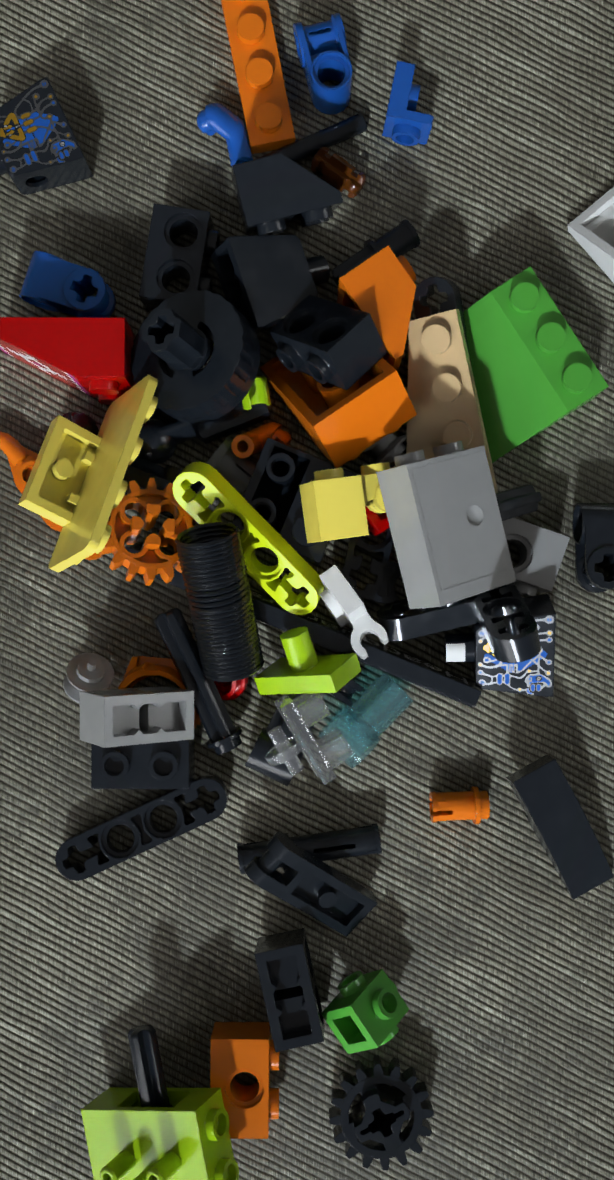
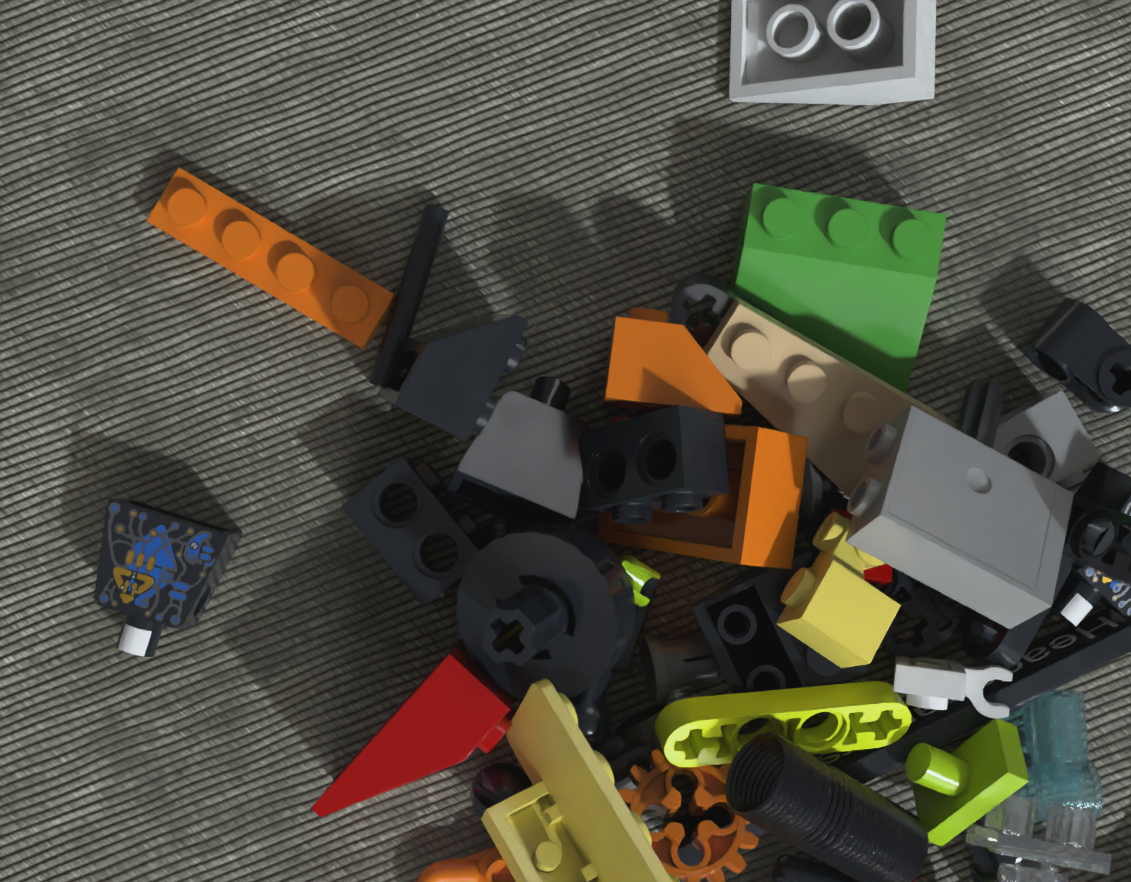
camera: 50 degrees left, 0 degrees up
(61, 285) = (335, 673): blue piece -> none
(228, 125) = (321, 350): blue arm -> none
(255, 439) = (671, 614): orange arm -> none
(324, 58) = (336, 187): blue piece -> none
(338, 172) = (468, 281): reddish brown piece -> none
(400, 240) = (590, 322): black axle -> none
(401, 120) = (455, 153): blue bracket -> none

